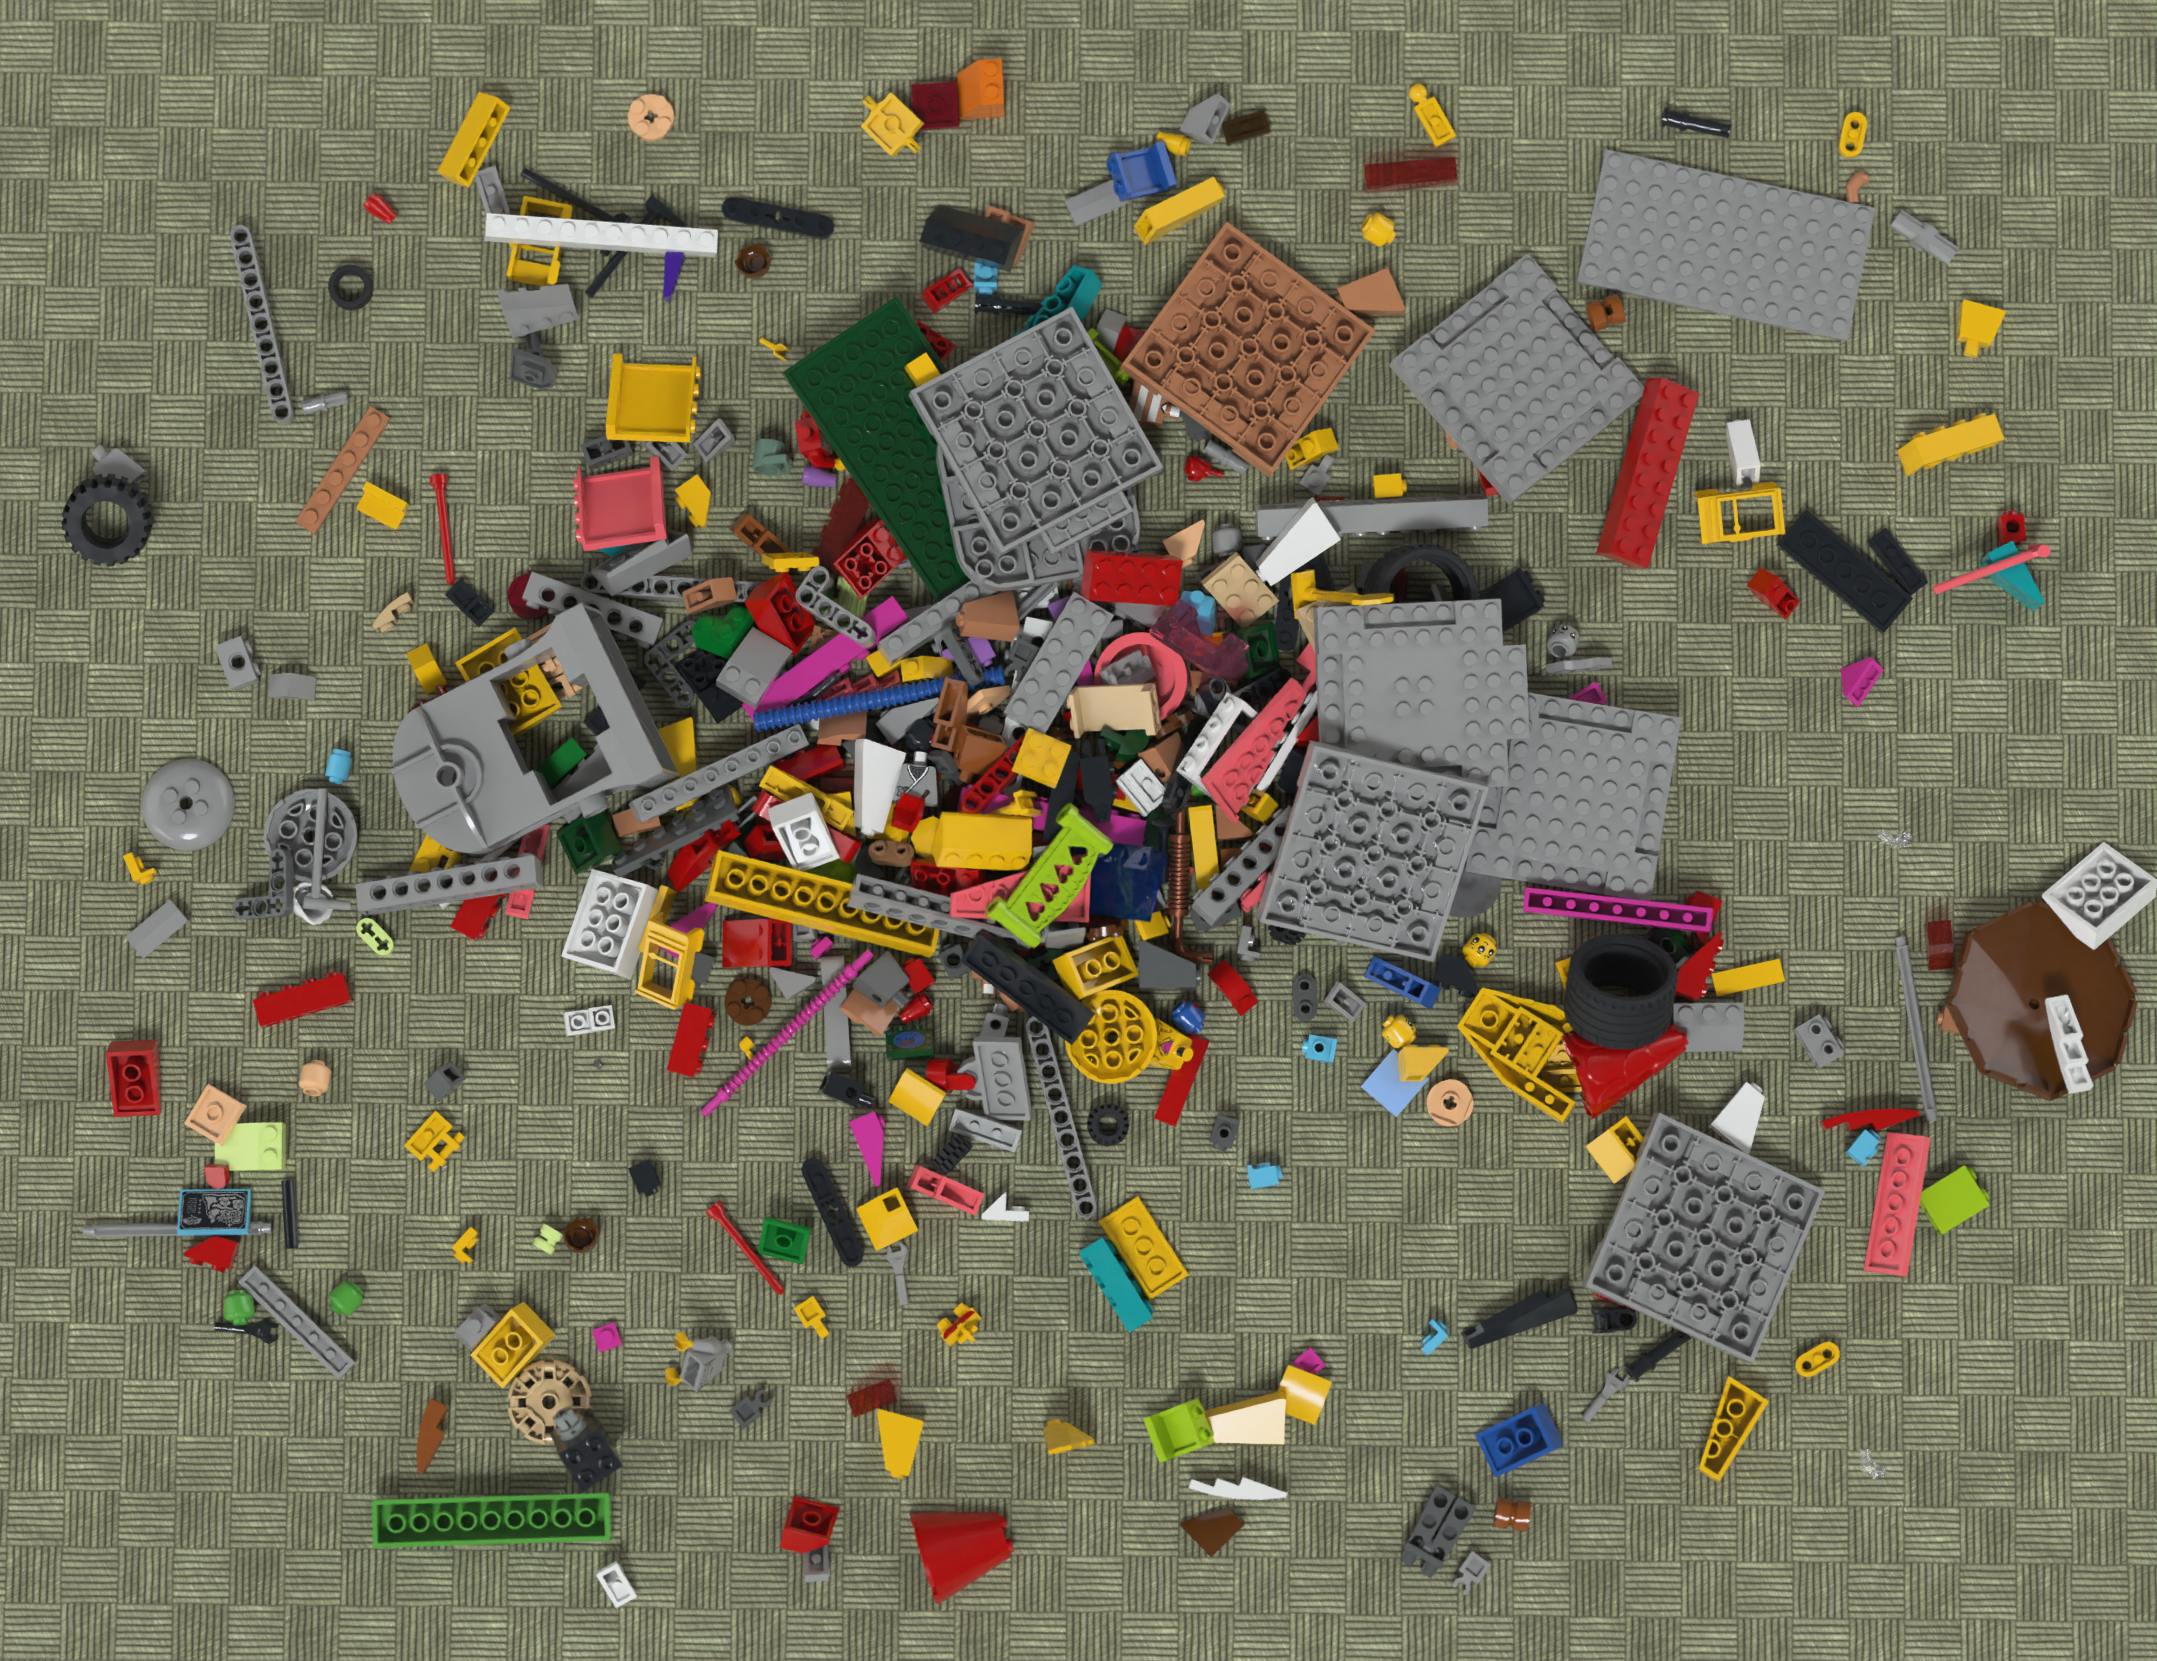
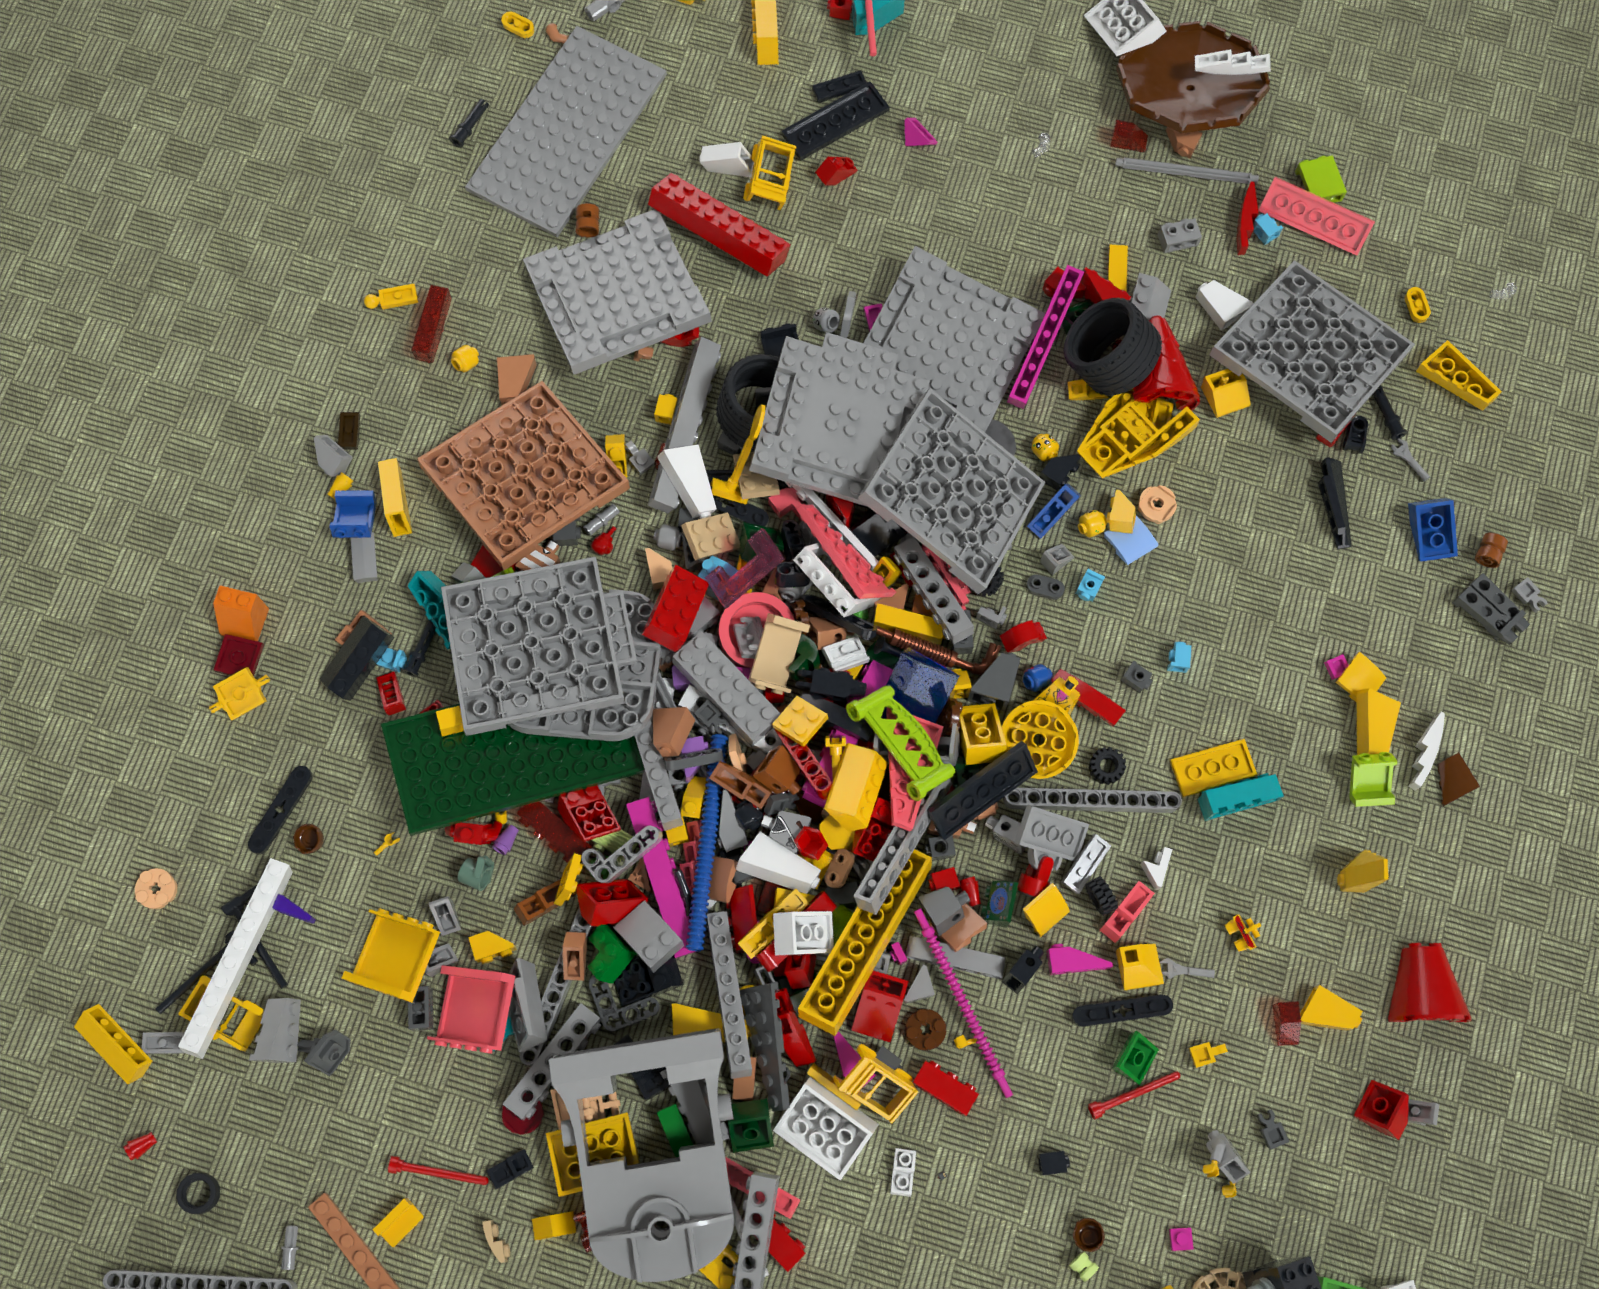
camera: 75 degrees left, 10 degrees down
(1432, 1341) = (1341, 567): medium azure bracket -> none

